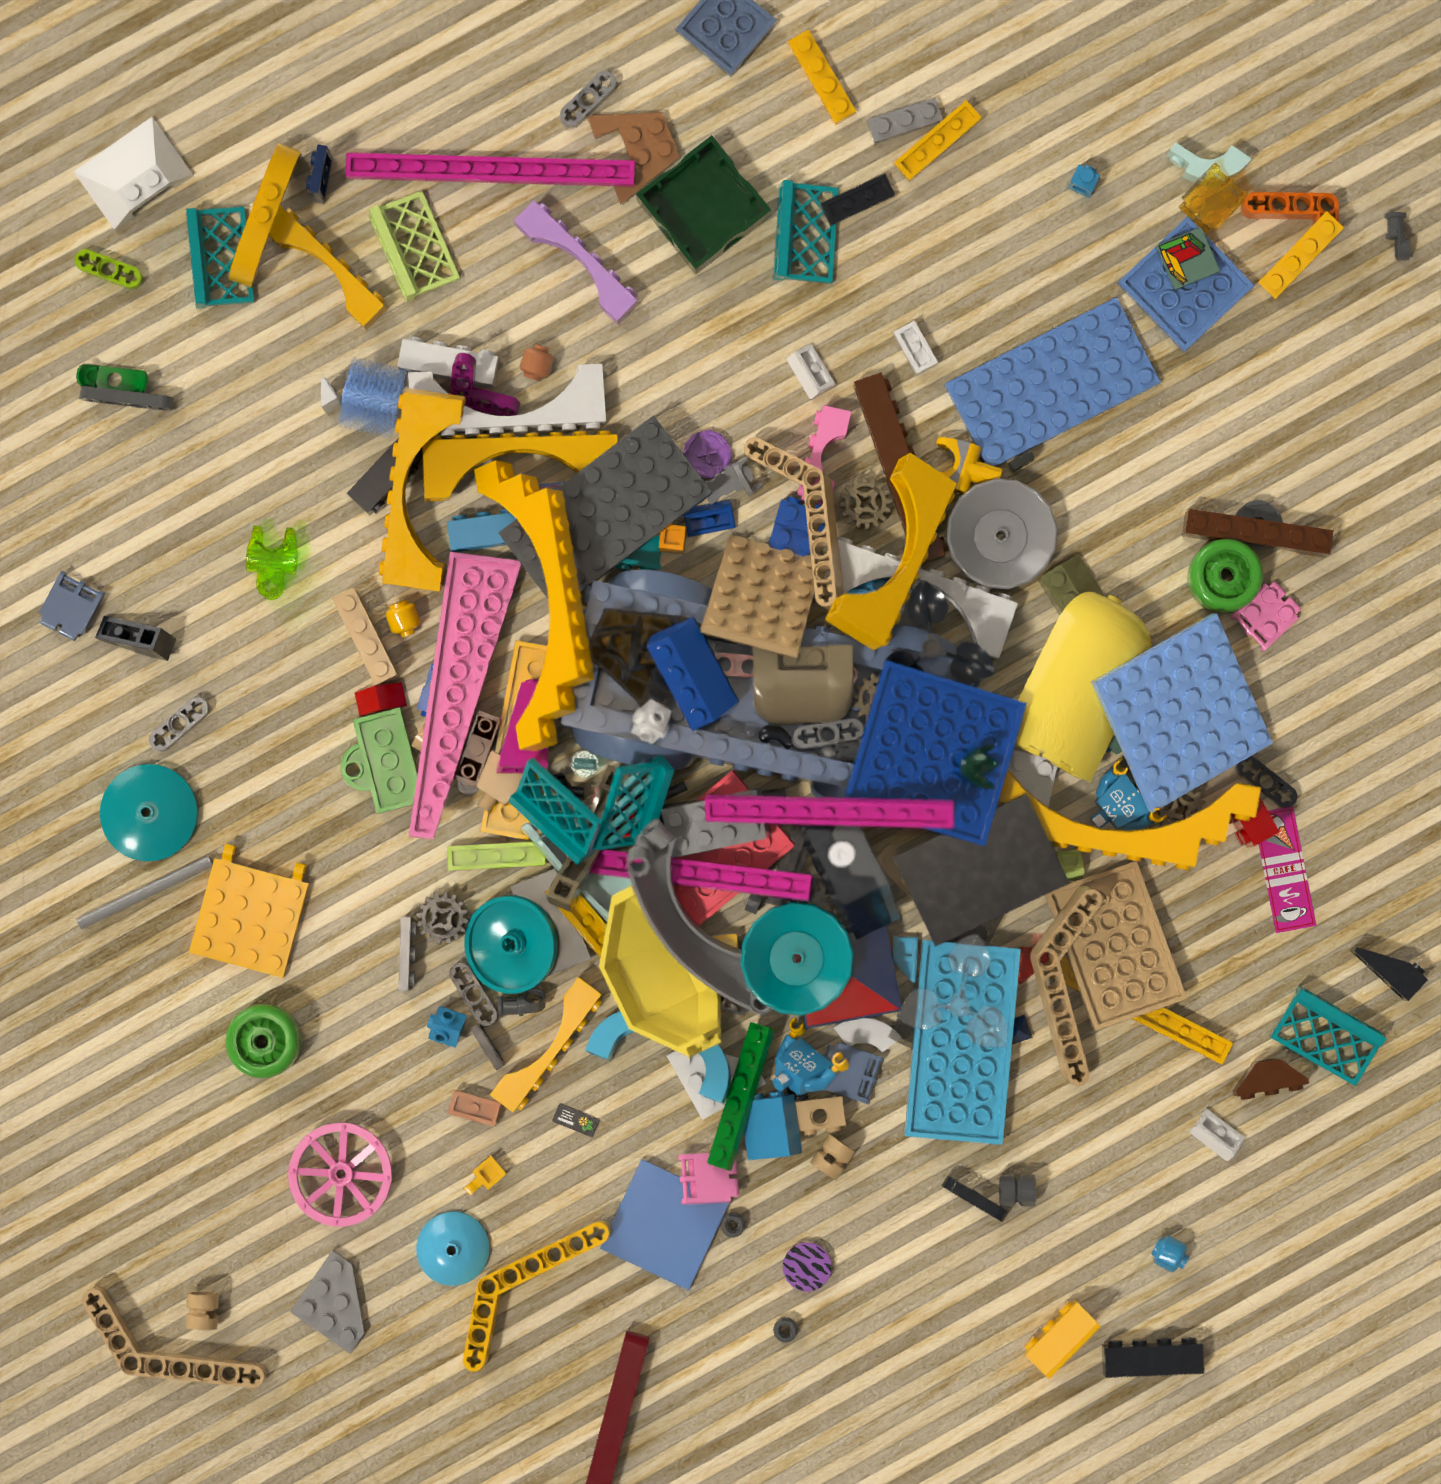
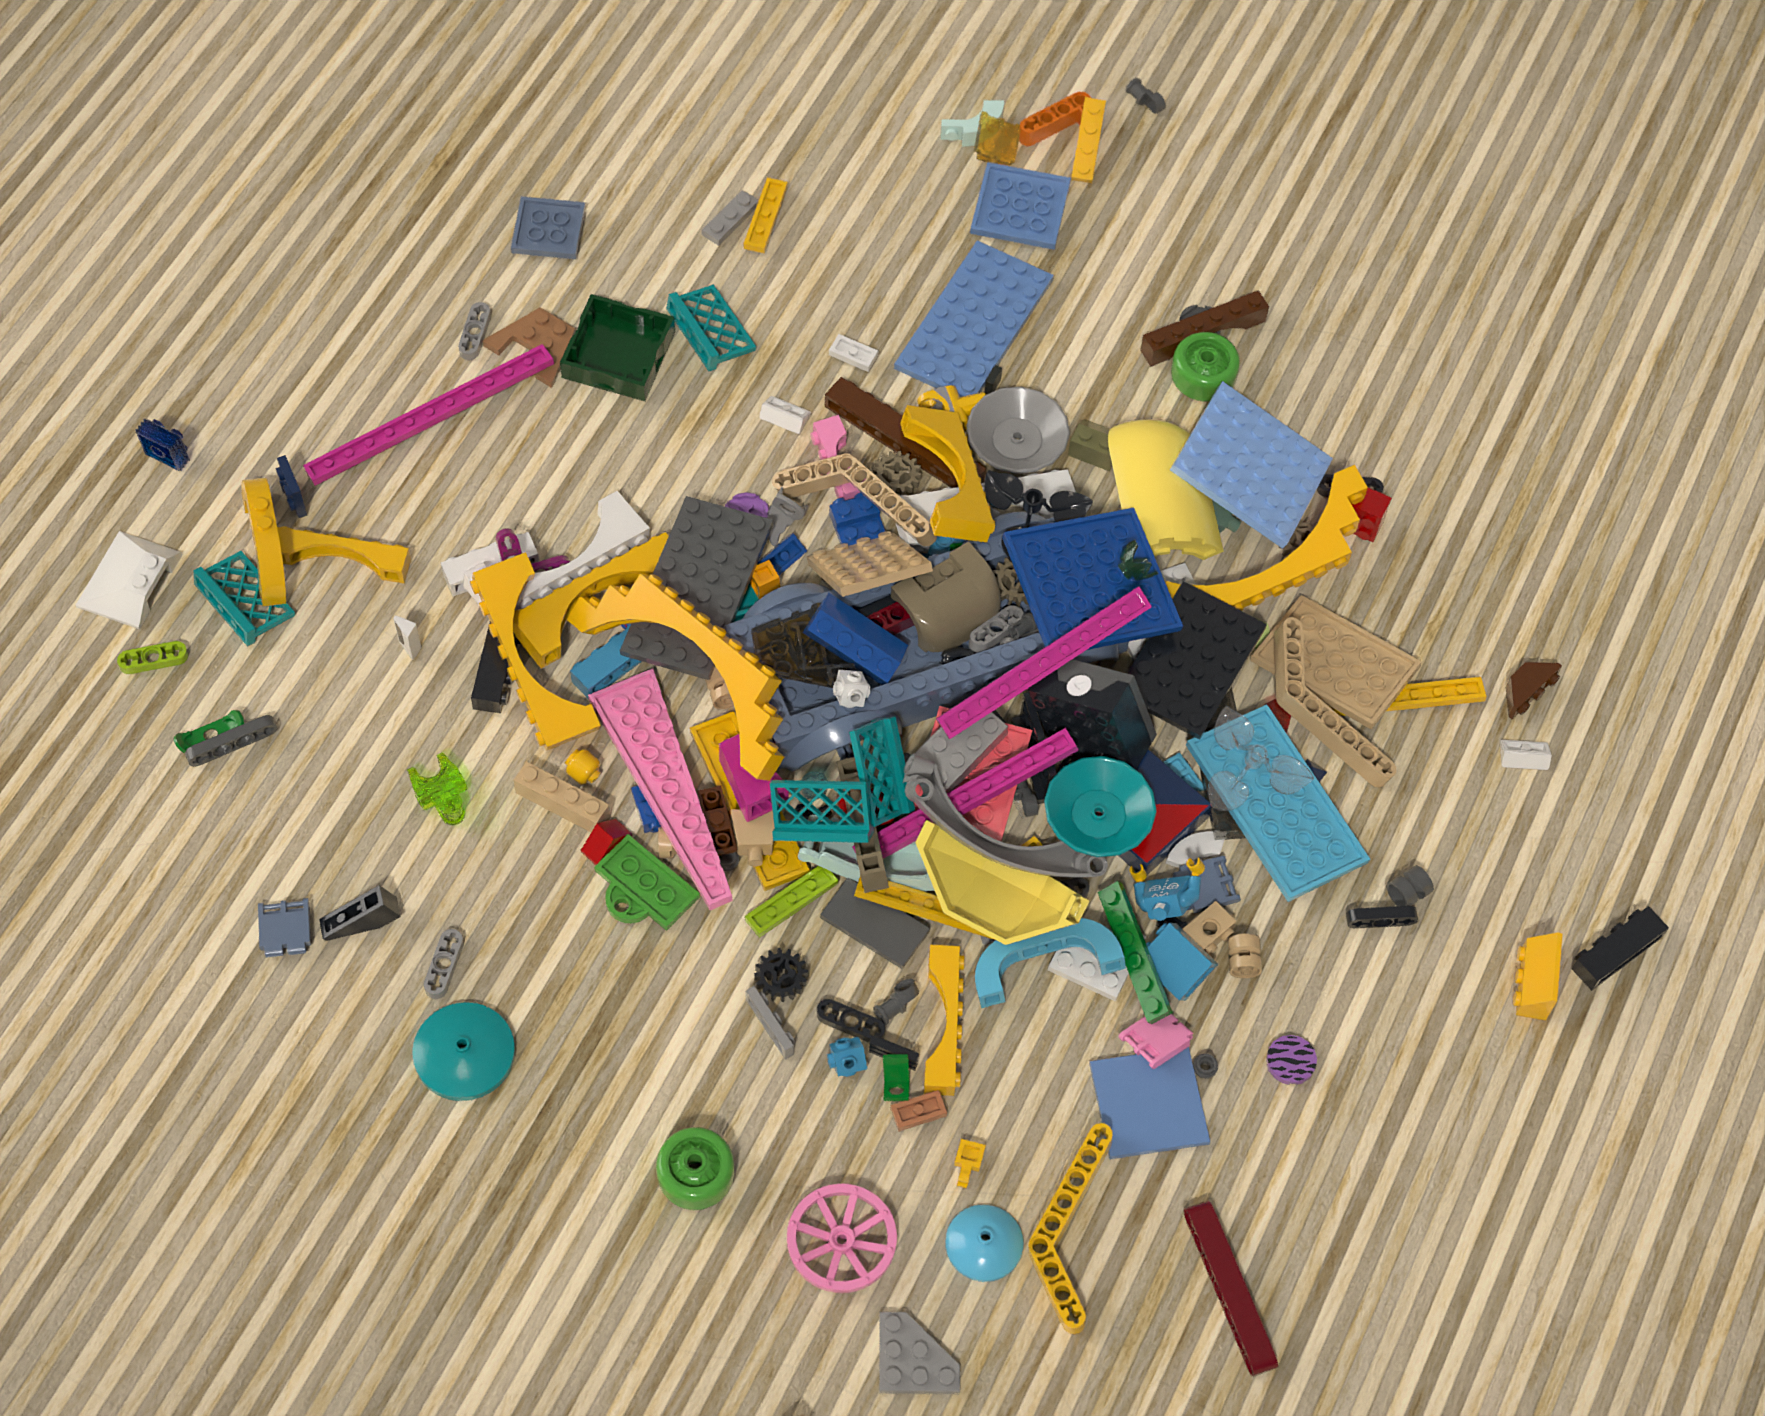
camera: 40 degrees left, 25 degrees down
(145, 892) = (503, 1118): light grey piece -> none
(231, 47) = (163, 444): none -> clear blue brick
(249, 915) = (611, 1079): yellow plate -> none
(371, 397) = (445, 613): light blue piece -> none
(394, 254) = (391, 512): yellowish green fence -> none
(475, 1065) = (896, 1075): none -> green bracket
(492, 950) = (837, 941): teal dish -> none
(537, 362) = (563, 523): nougat head -> none
(542, 228) = (500, 431): lavender arch -> none
(575, 1120) = (1011, 1069): black sticker -> none
(785, 1337) = (1315, 1115): dark grey plate -> none
(821, 77) = (646, 223): yellow plate -> none
(857, 200) = (734, 283): black tile -> none
(1084, 180) = (894, 174): dark azure brick -> none
(1122, 802) = (1251, 556): dark azure torso -> none
(1170, 1254) = (1565, 859): dark azure head -> none
(1187, 258) = (1009, 185): tile -> none
(1268, 614) = (1258, 378): bright pink plate -> none
(1286, 875) = (1421, 546): sticker -> none
(1342, 1020) = (1544, 610): teal fence -> none
(1397, 974) = (1554, 556): black slope -> none

